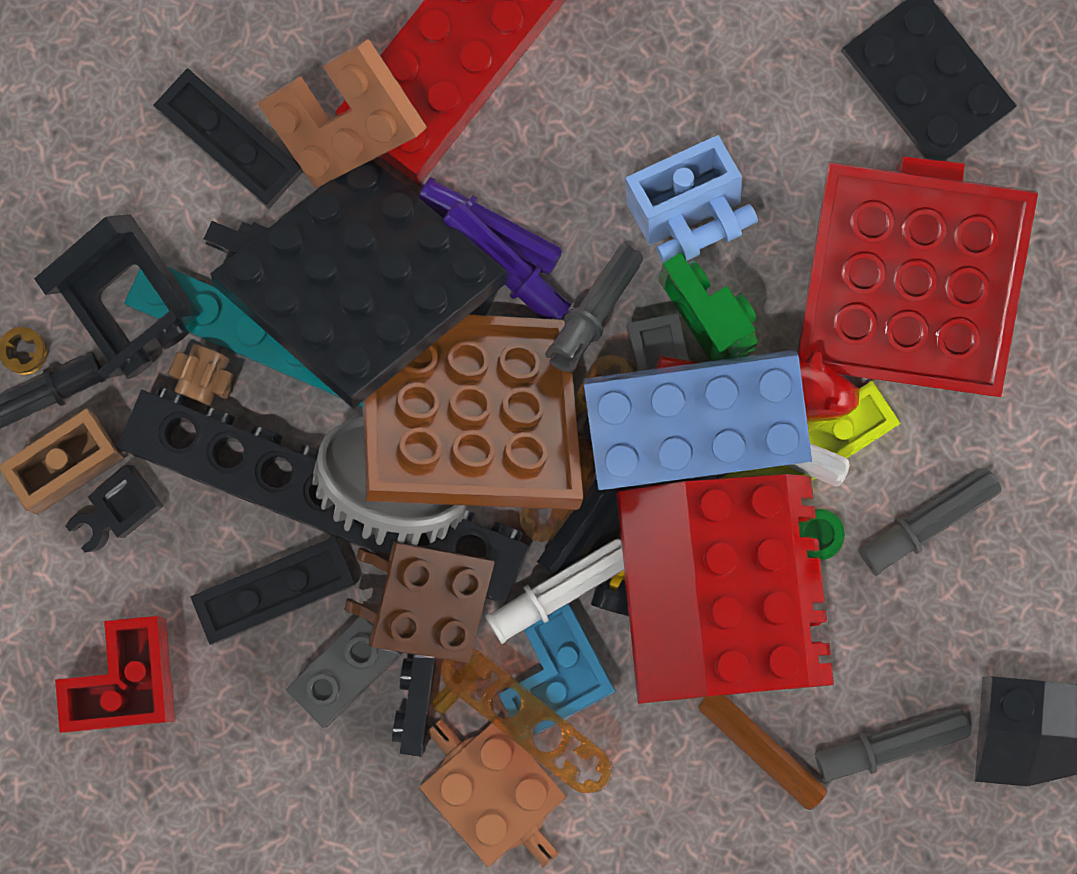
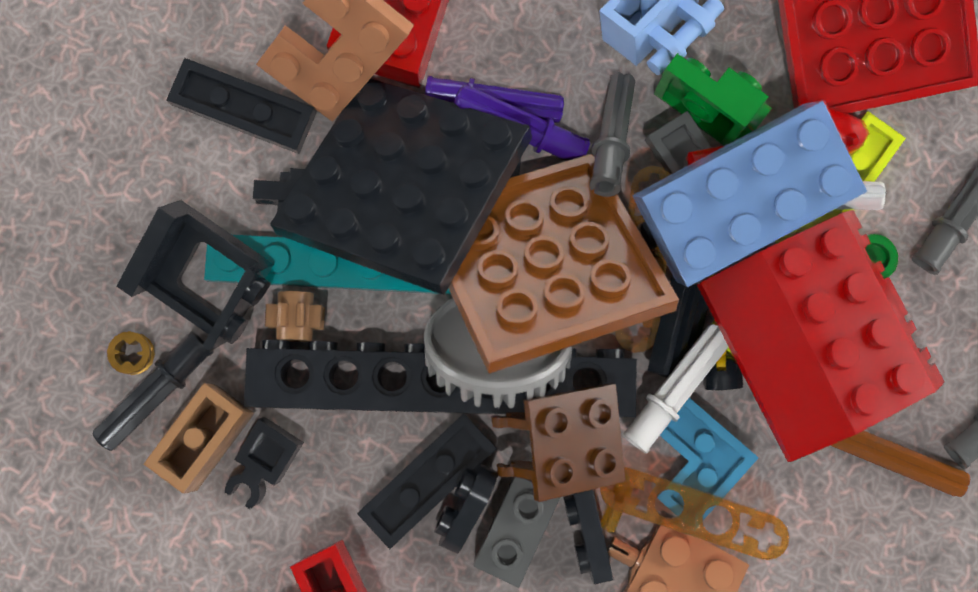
camera: 20 degrees left, 0 degrees up
(314, 617) = (473, 493): none -> black plate

